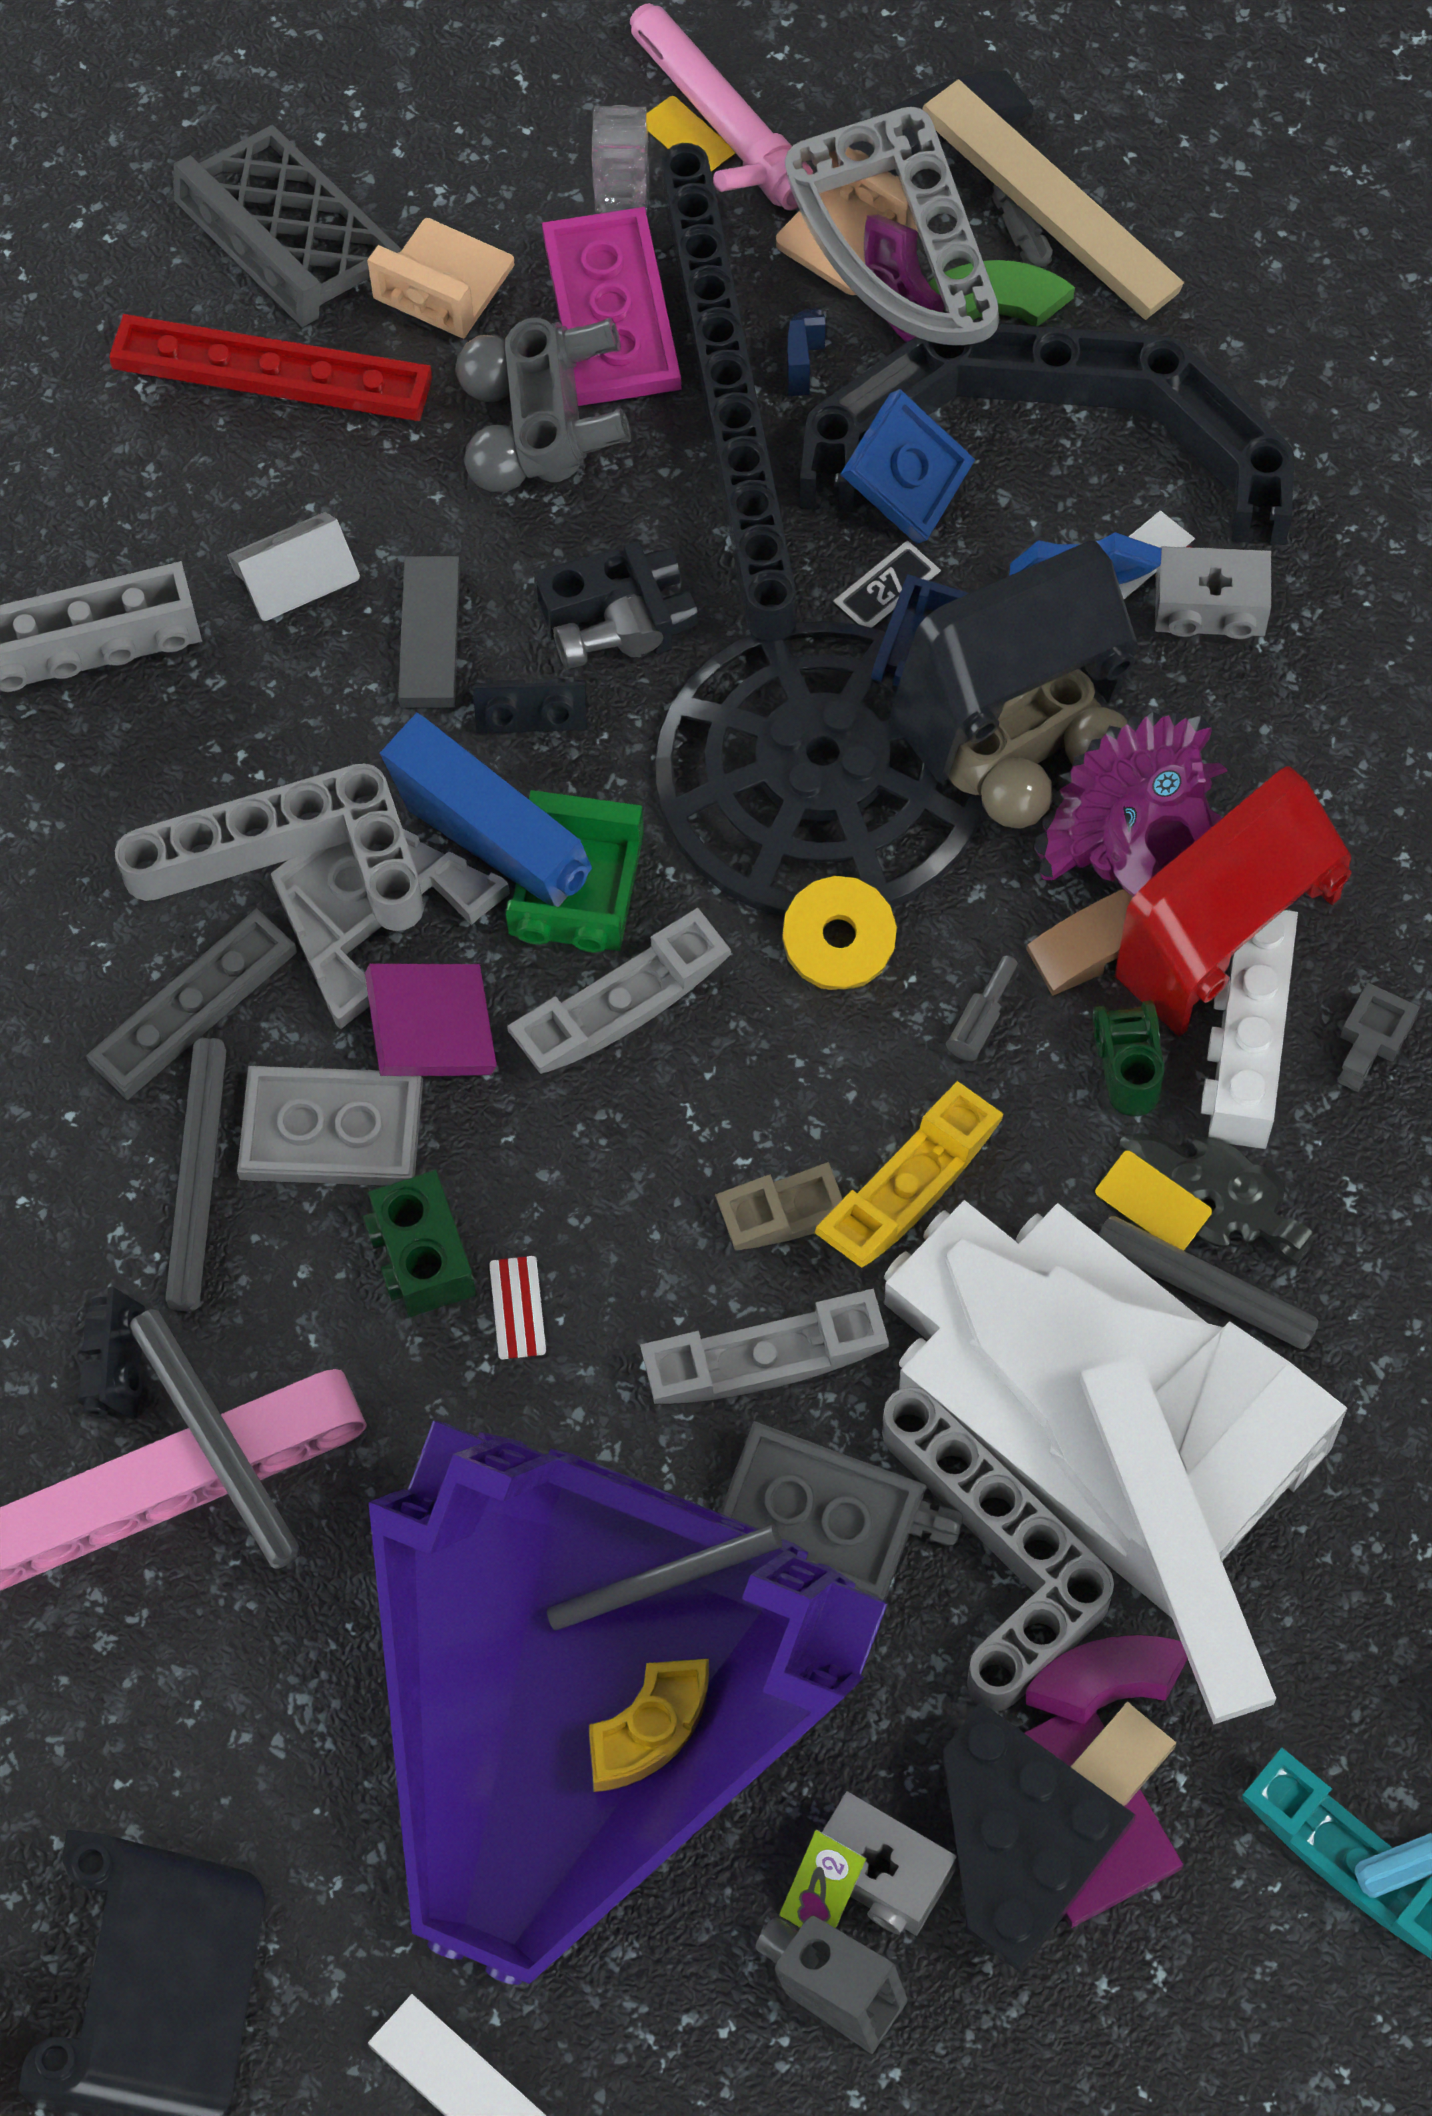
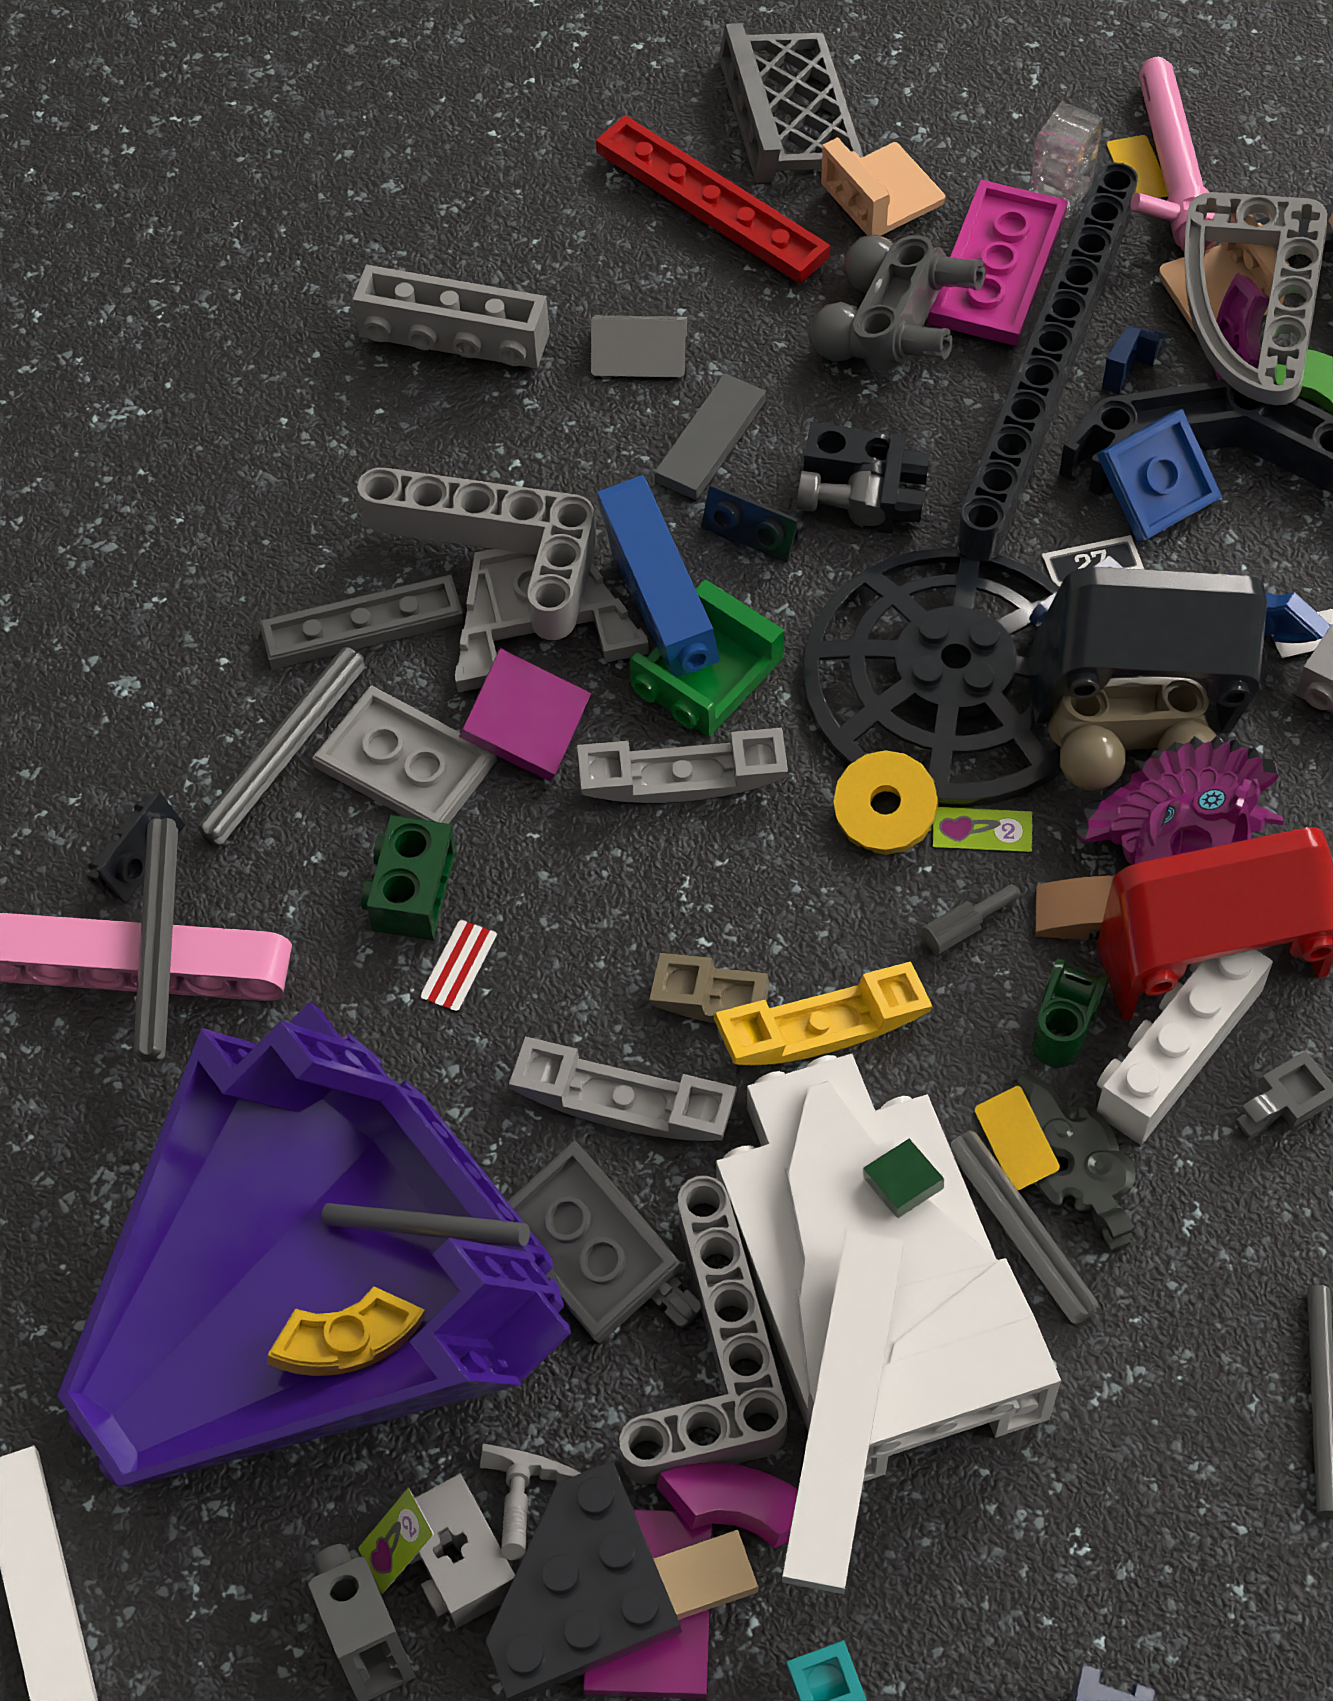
camera: 30 degrees right, 5 degrees down
(886, 1757) = (518, 1469): none -> light grey piece
(943, 913) = (983, 829): none -> lime sticker
(1093, 1295) = (903, 1178): none -> dark green tile

